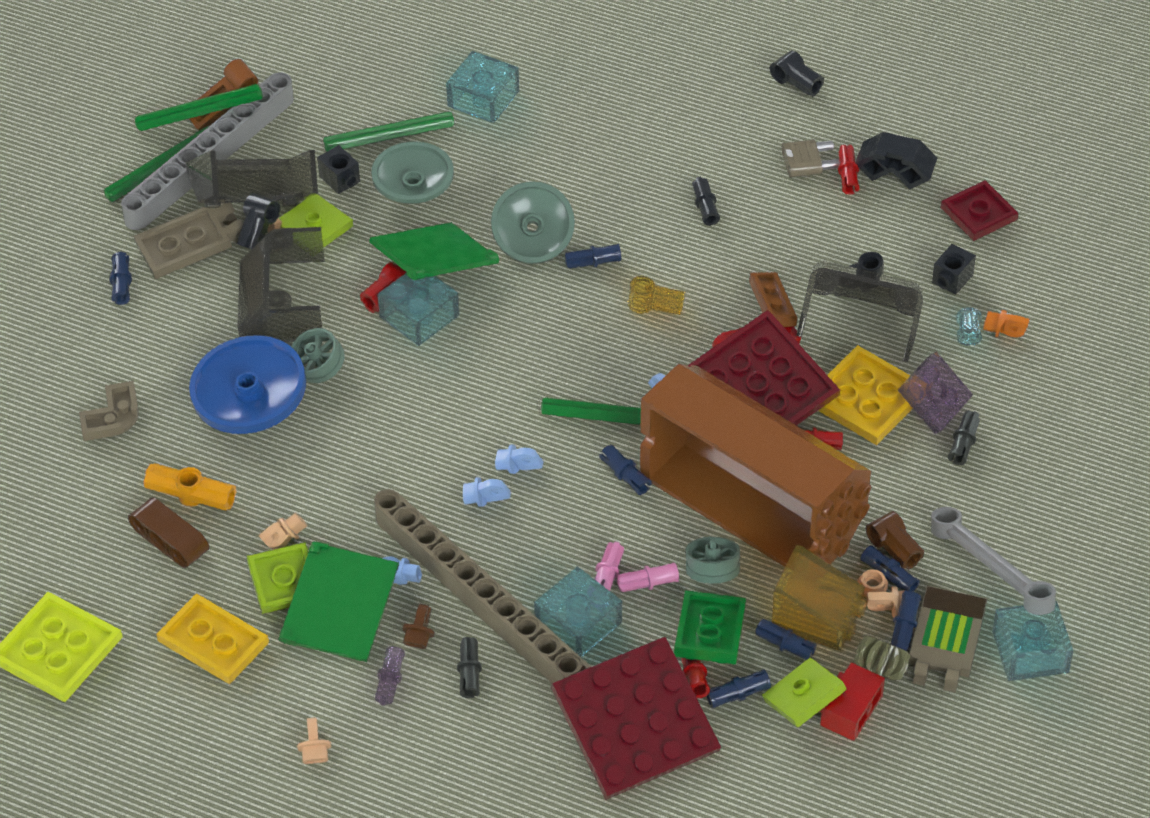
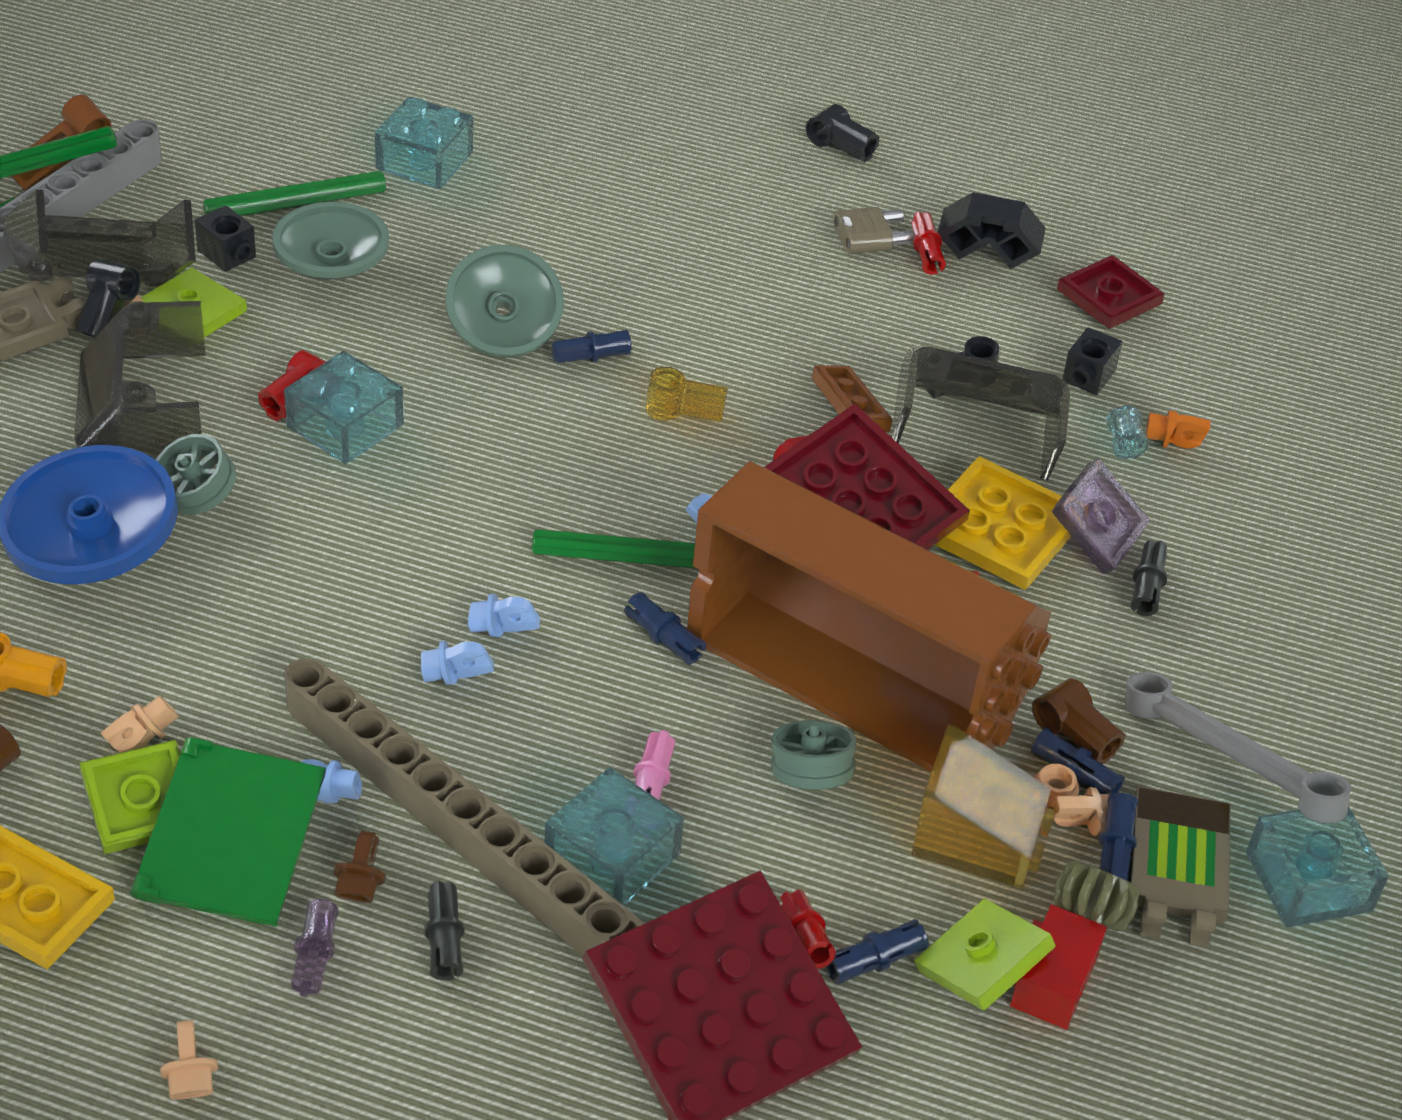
camera: 10 degrees left, 5 degrees down
(434, 250) = (365, 335): green piece -> none
(648, 577) = (716, 783): bright pink axle -> none
(705, 201) = (740, 280): black axle -> none
(710, 627) = (823, 857): green plate -> none
(785, 639) = (939, 872): dark blue axle -> none

